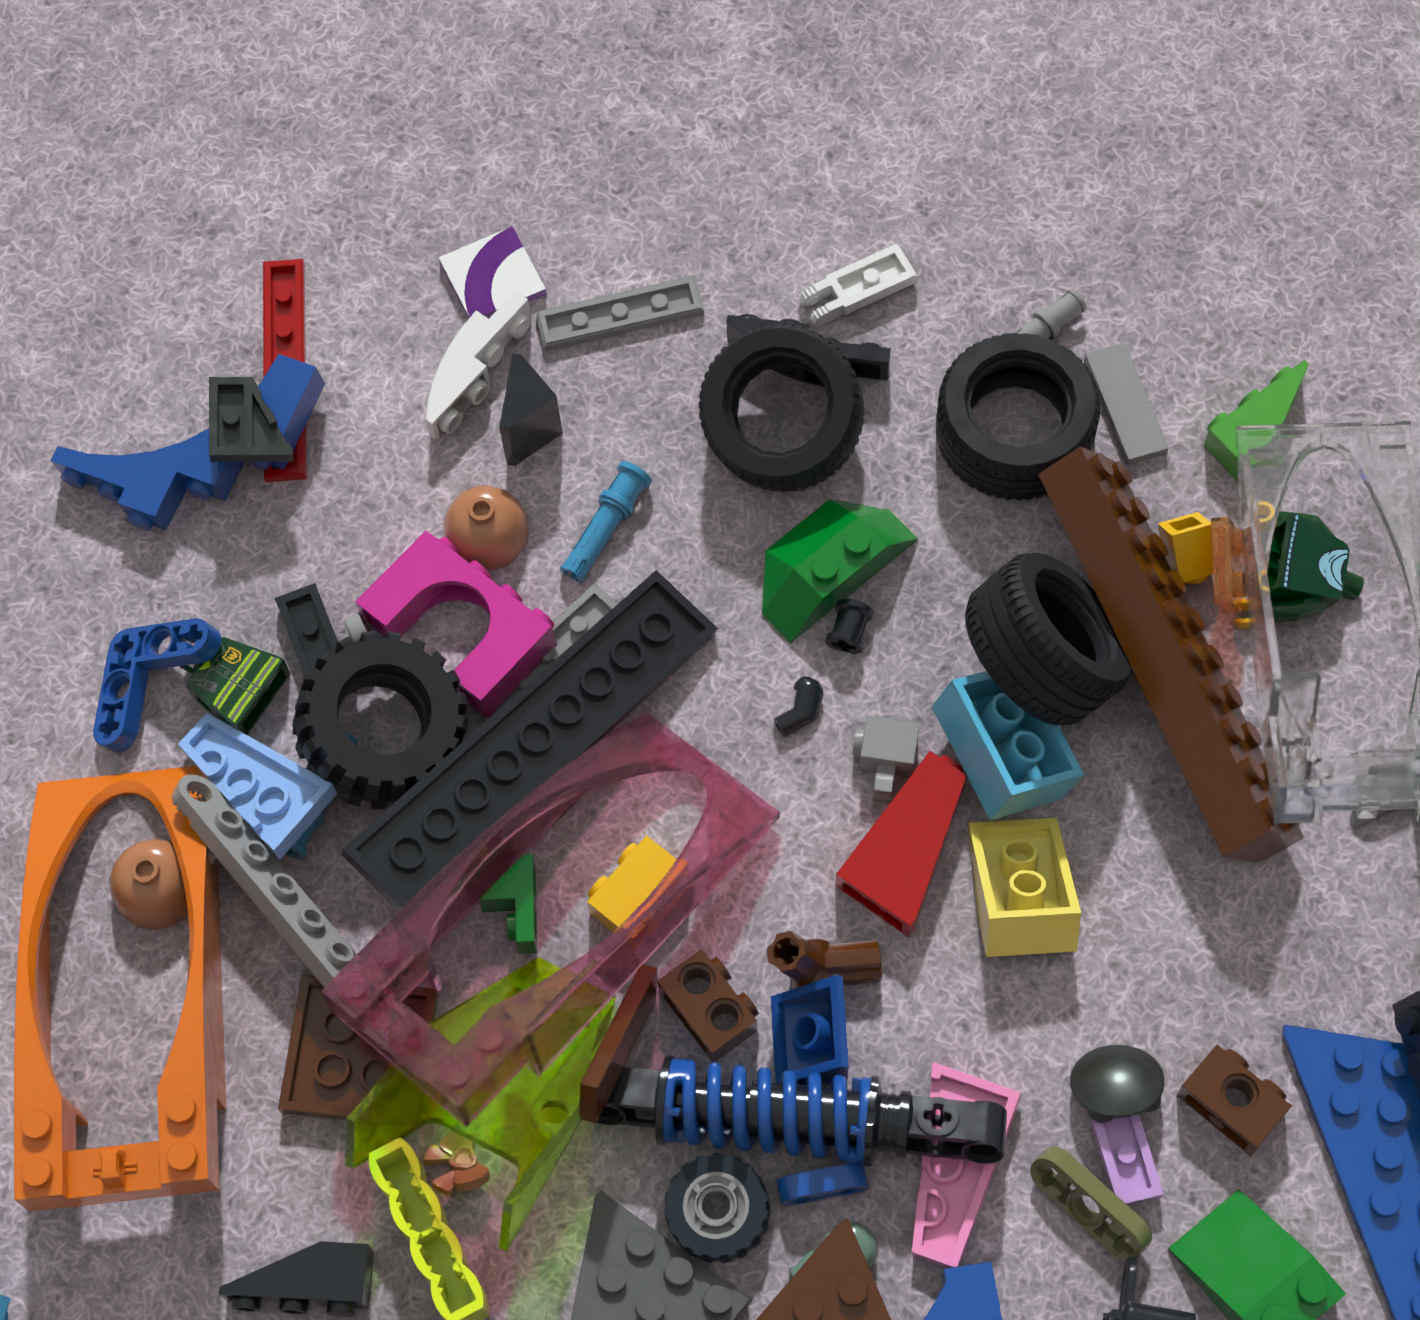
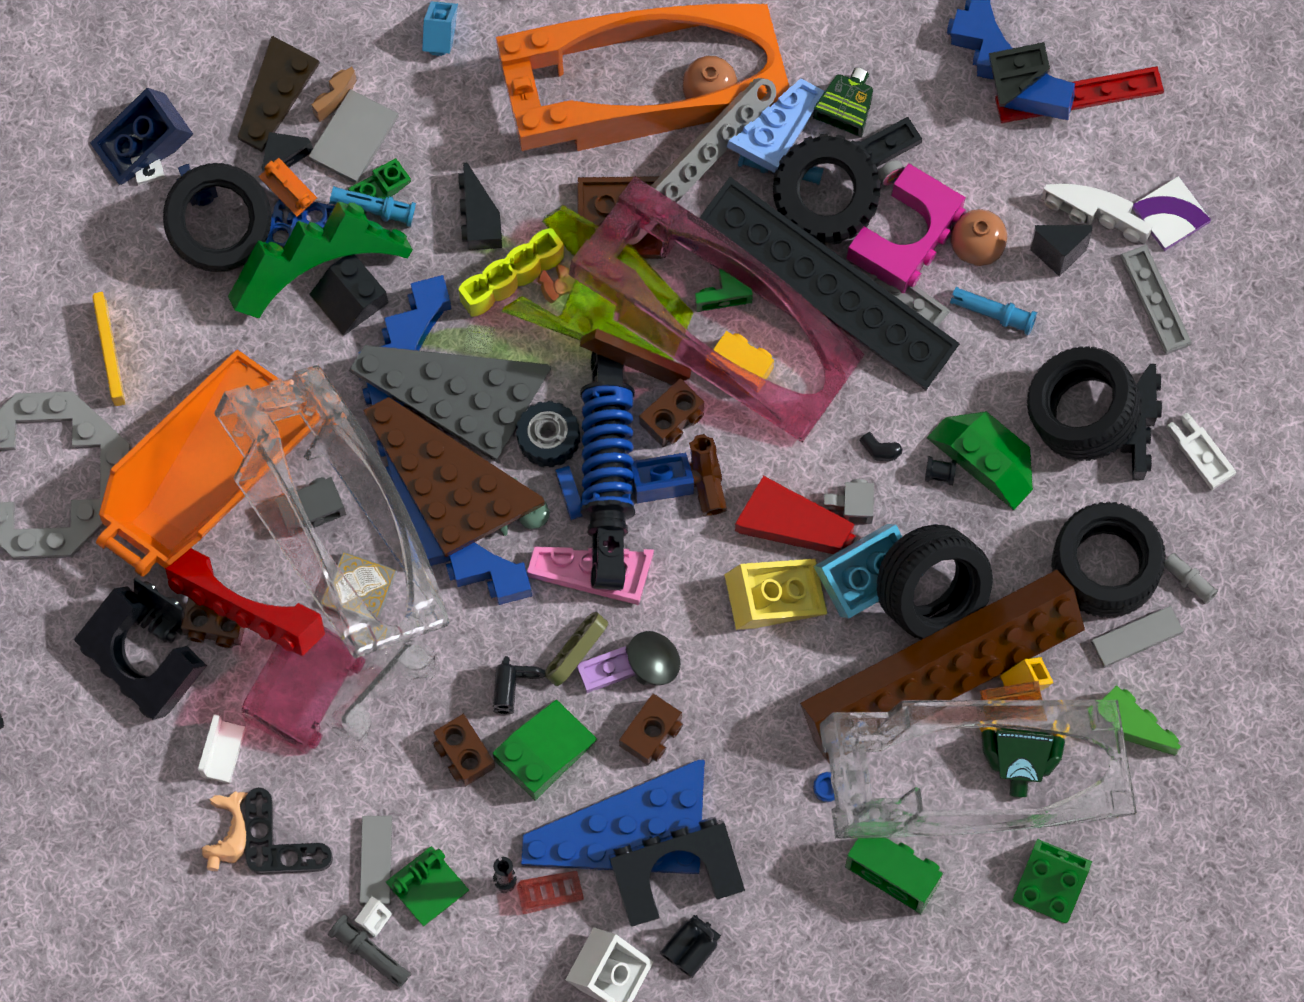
camera: 80 degrees right, 5 degrees up
(130, 659) = (853, 46): blue beam -> none
(1332, 849) = (823, 787): none -> blue tile

